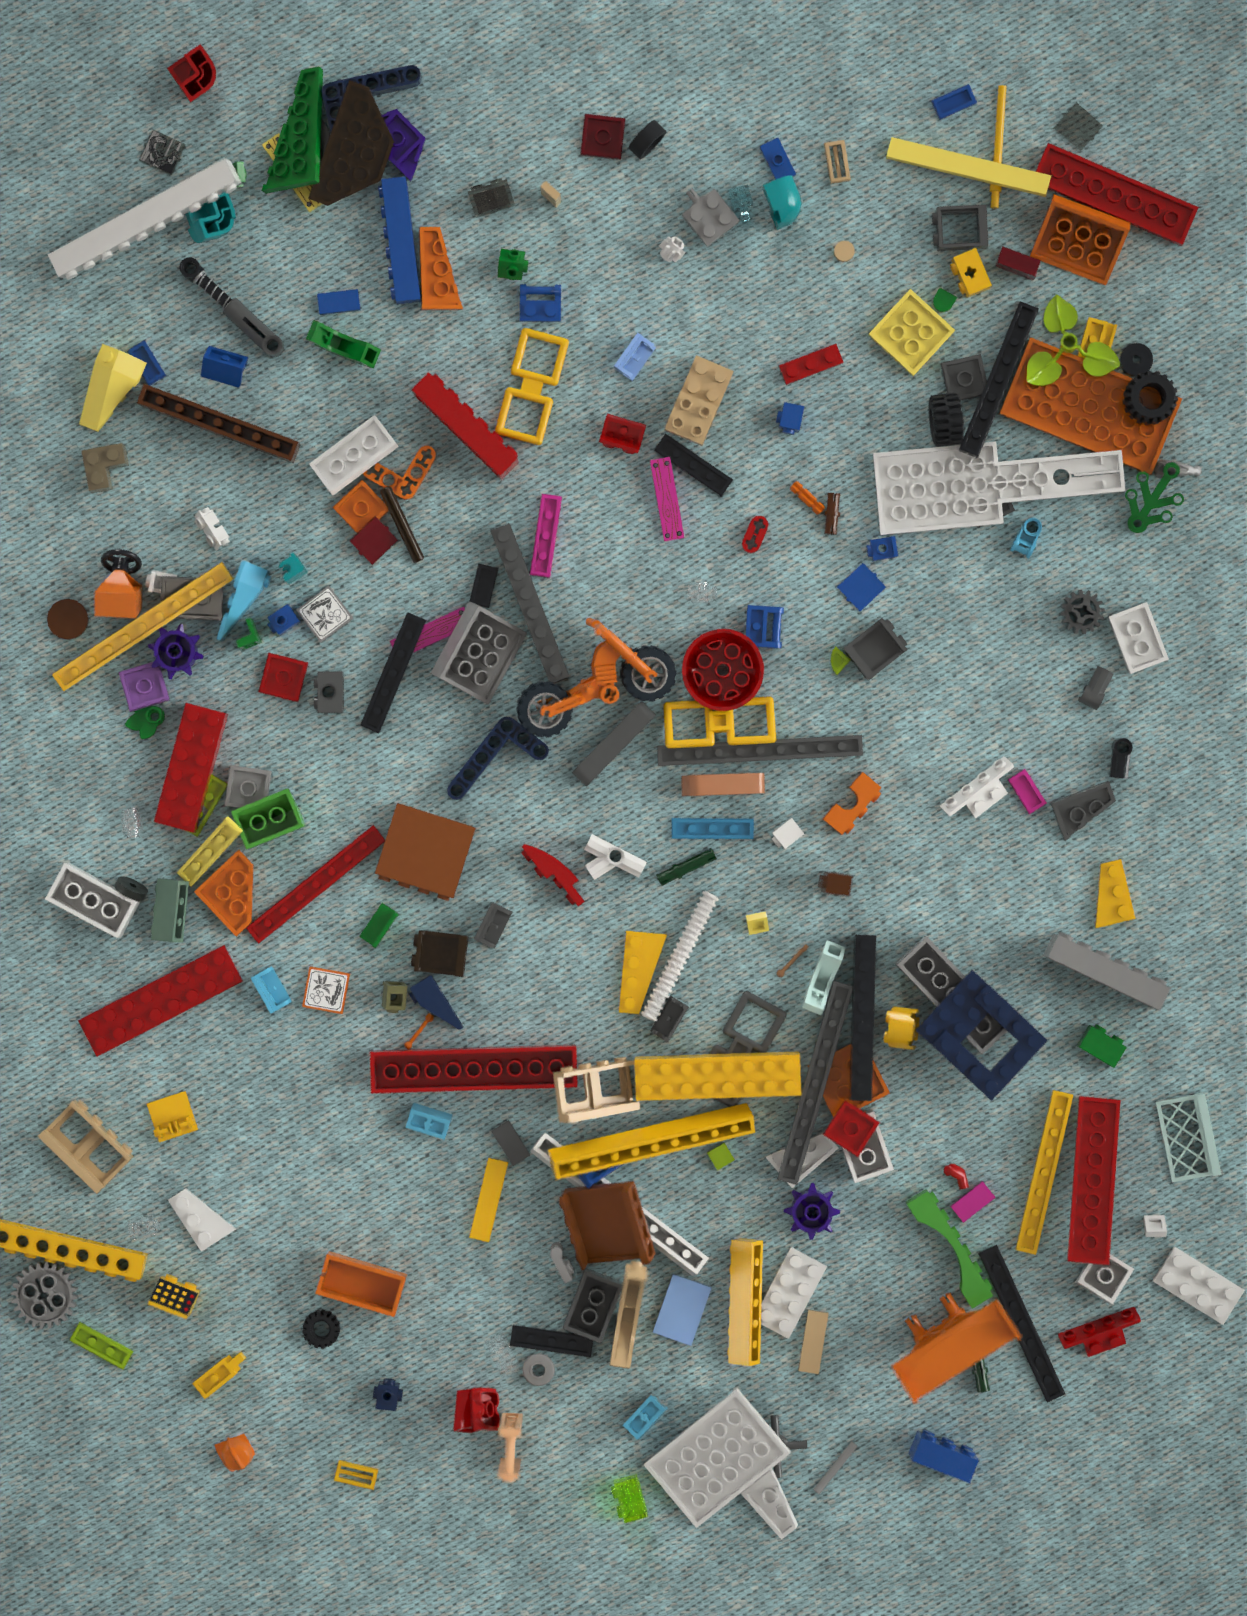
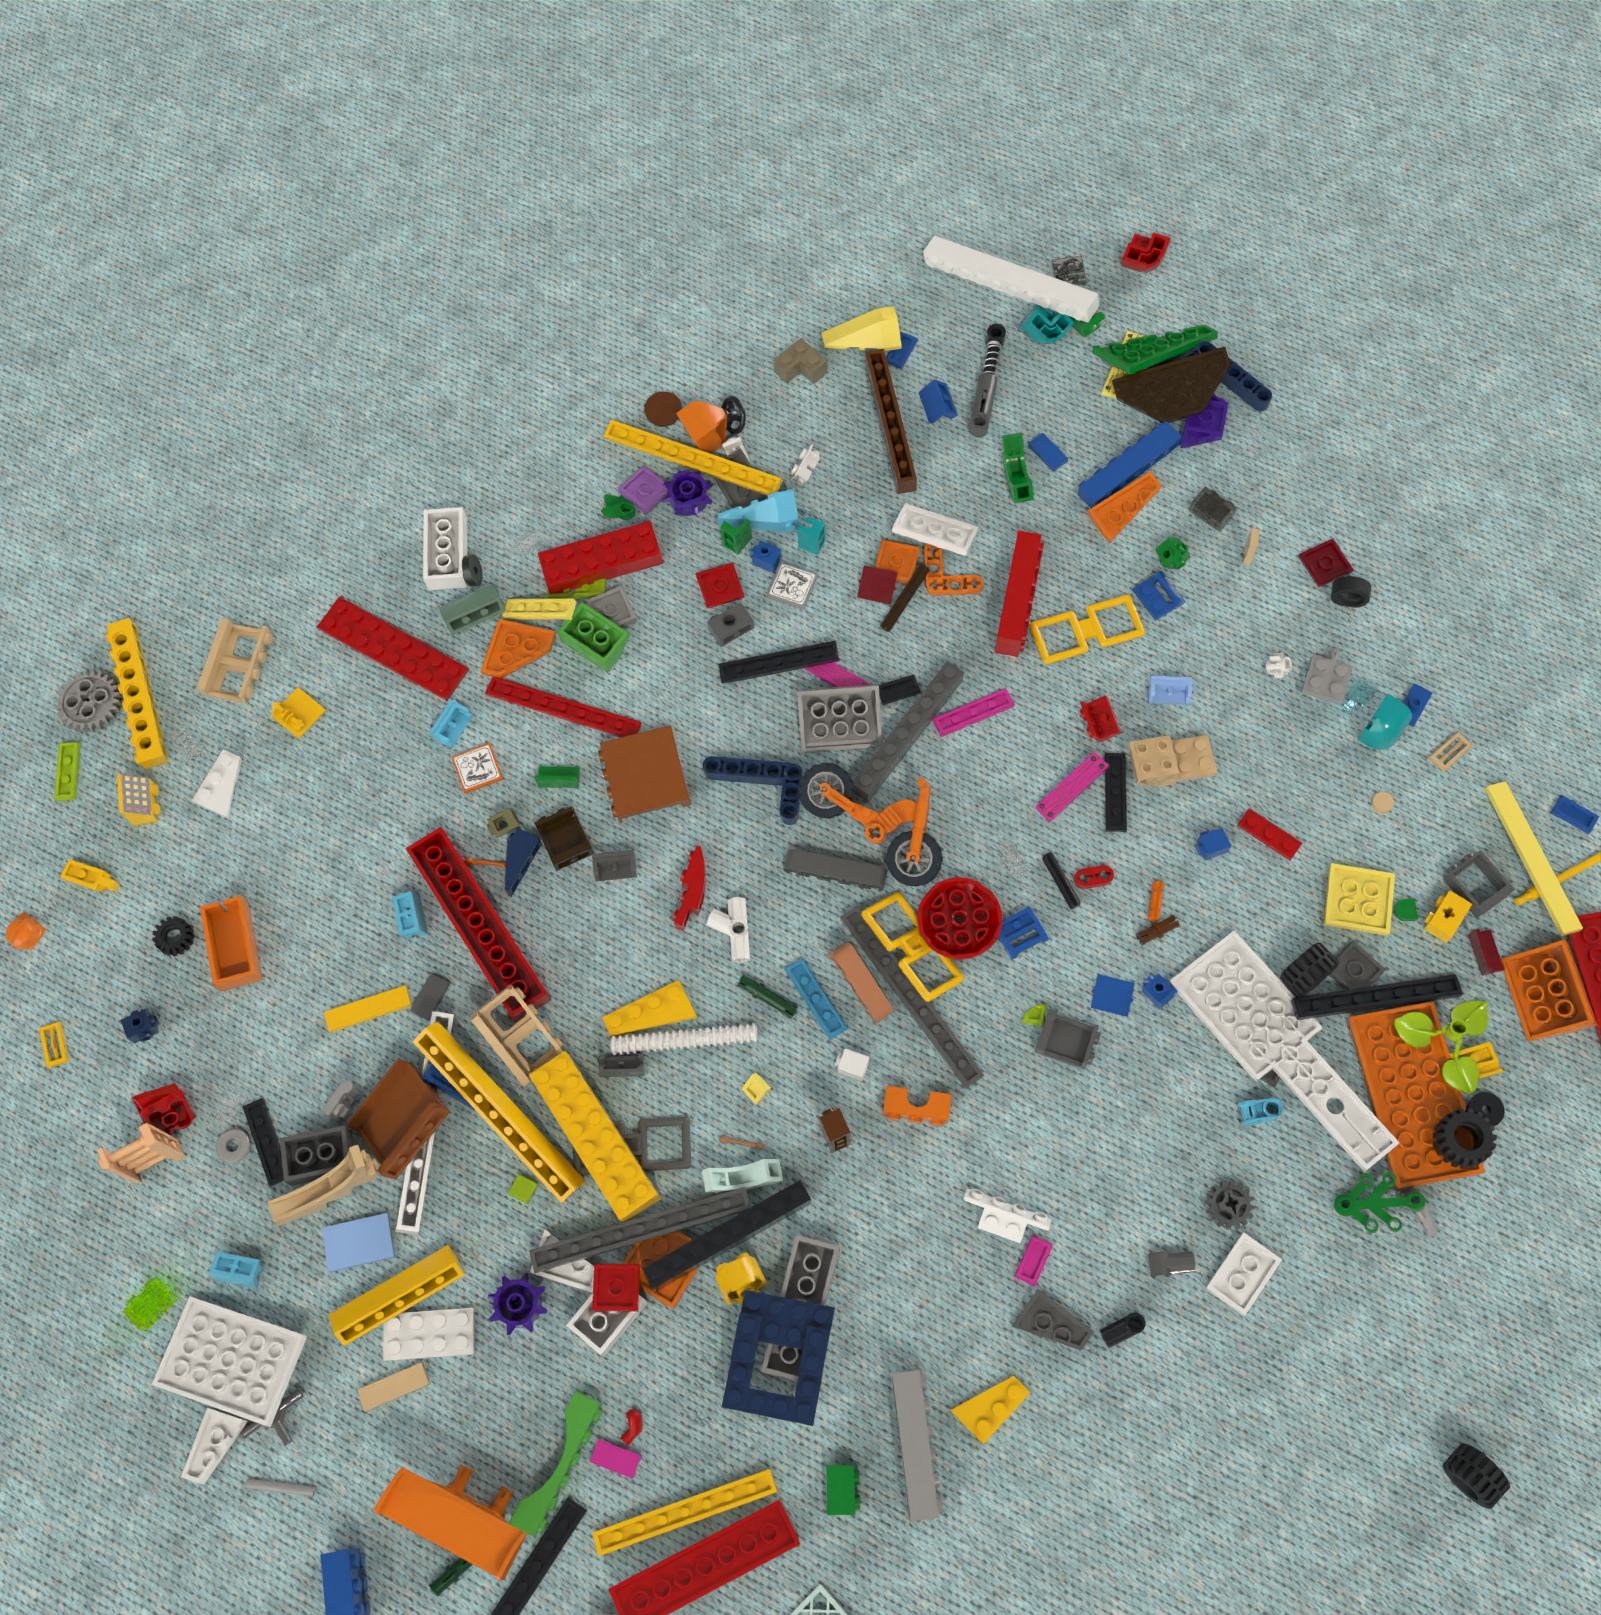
camera: 65 degrees right, 20 degrees down
(740, 563) = (1061, 880): none -> black axle

